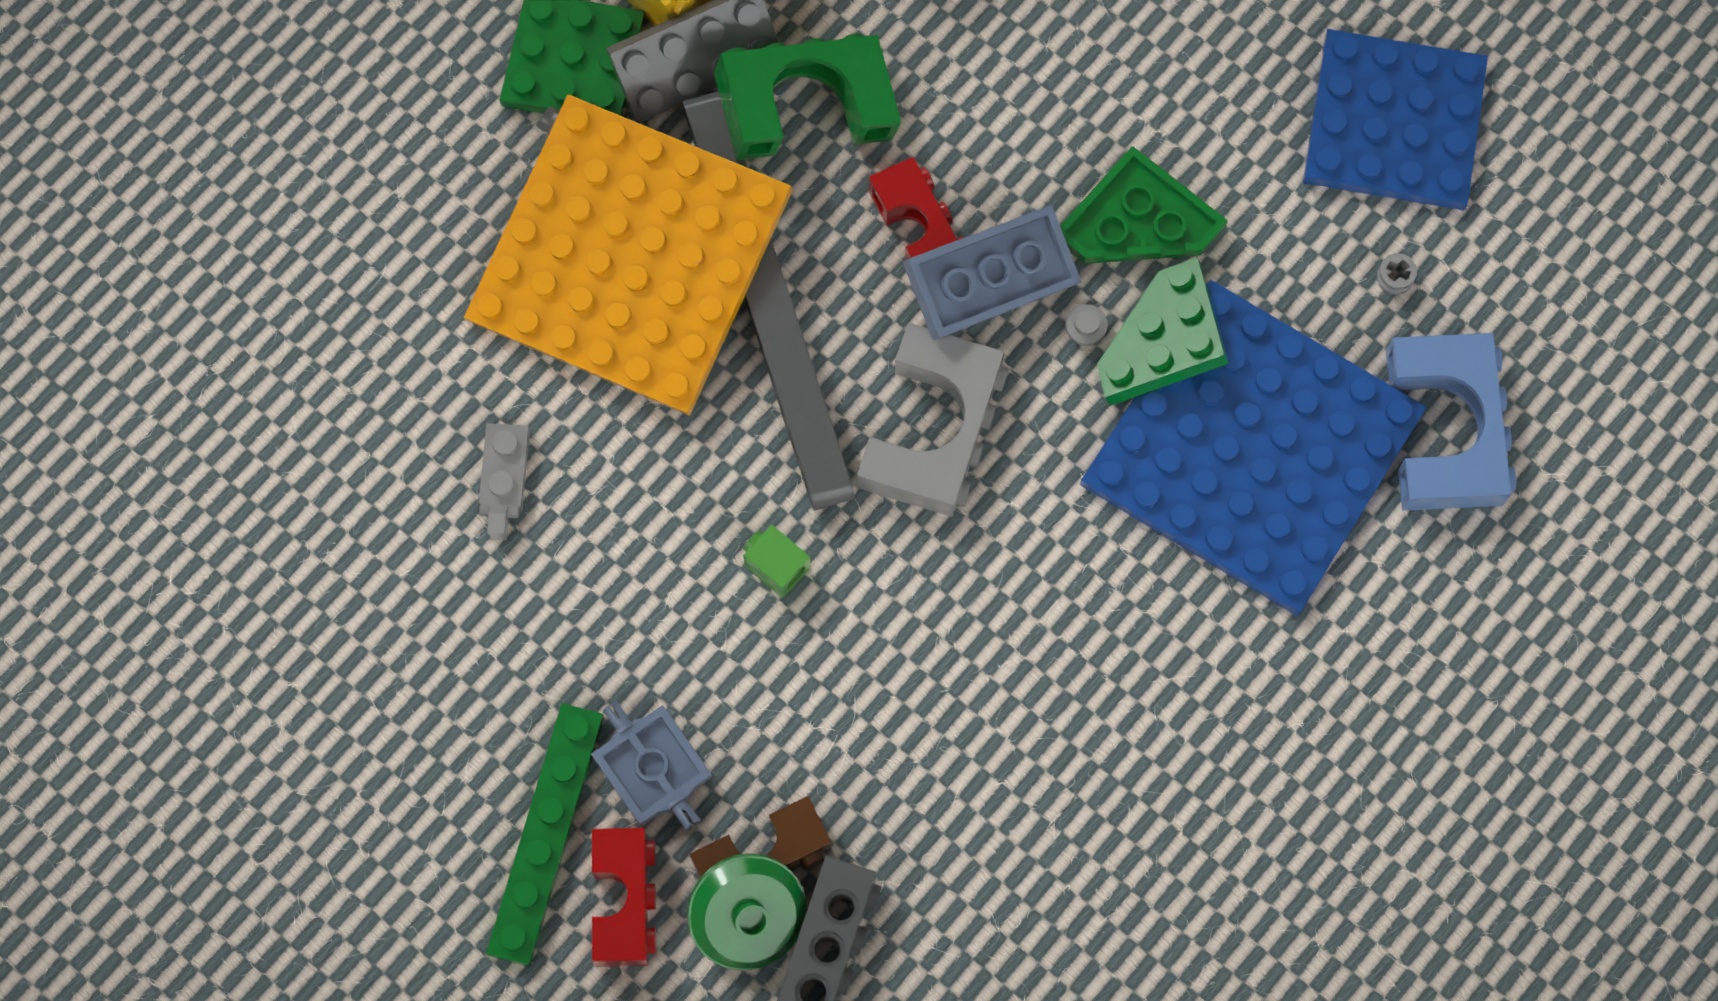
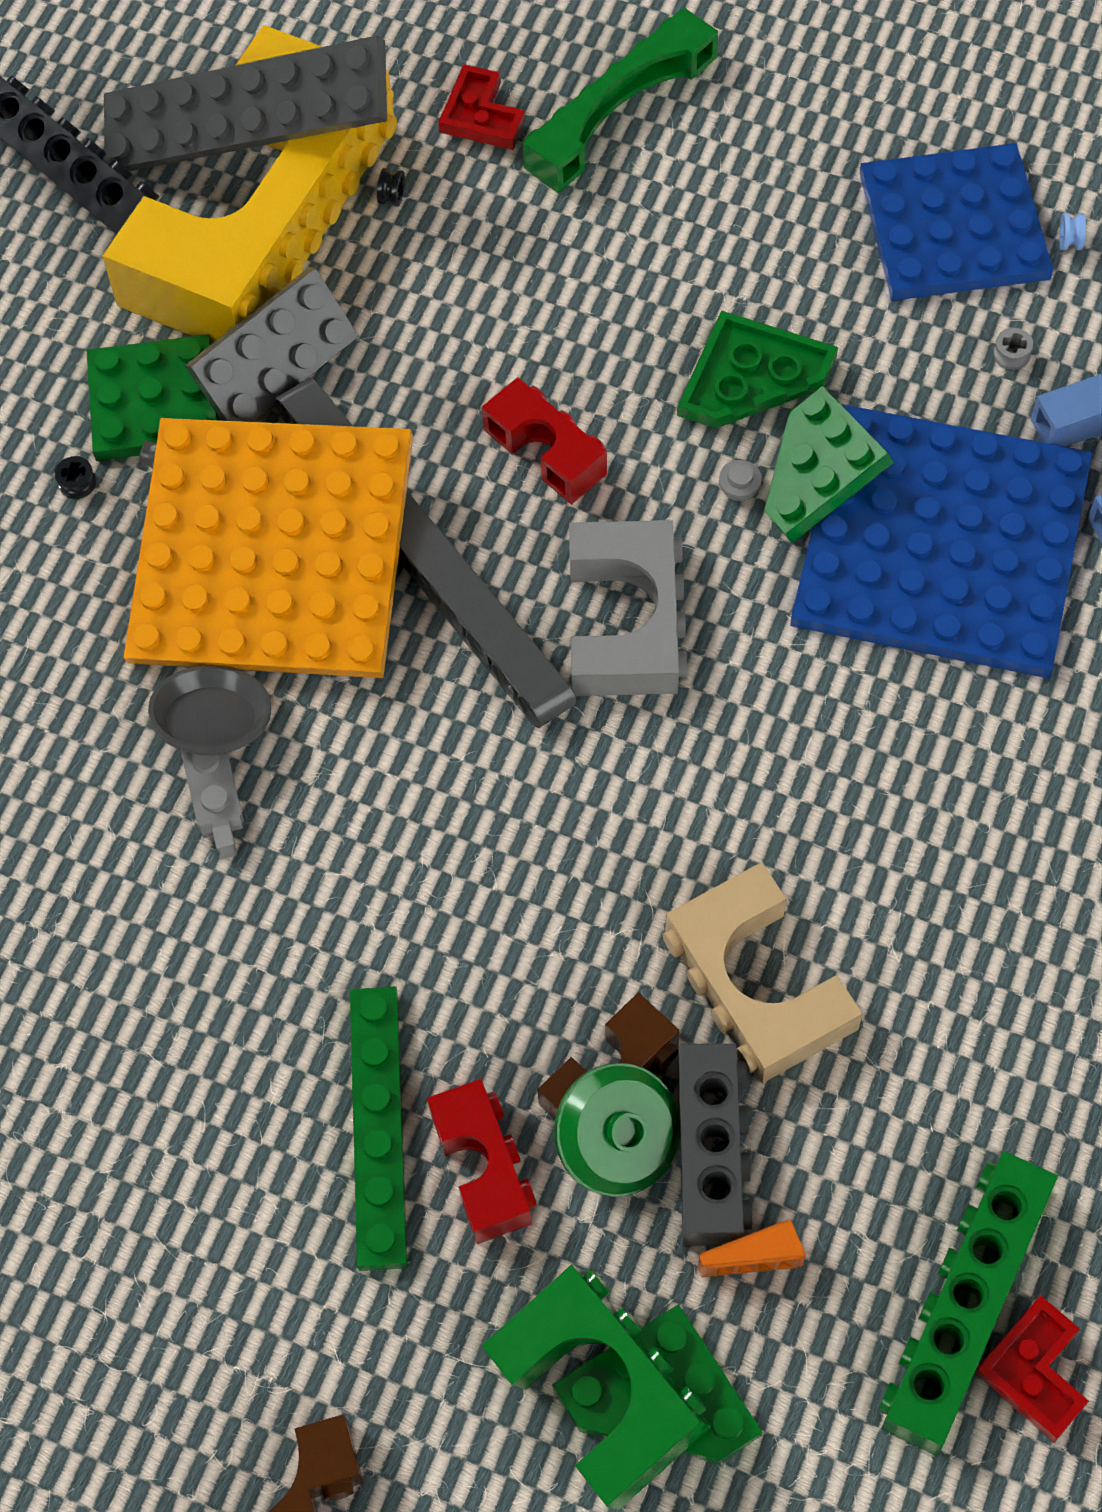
camera: 15 degrees left, 10 degrees down
(481, 129) = (66, 470): none -> black bush
(522, 398) = (209, 710): none -> dark grey piece
(651, 765) = (464, 1020): sand blue plate -> none
(775, 560) = (519, 783): bright green brick -> none
(848, 66) = (422, 321): green arch -> none
(913, 871) = (768, 1034): none -> tan arch
(991, 272) = (633, 453): sand blue plate -> none
(1502, 170) = (1072, 231): none -> light blue bush

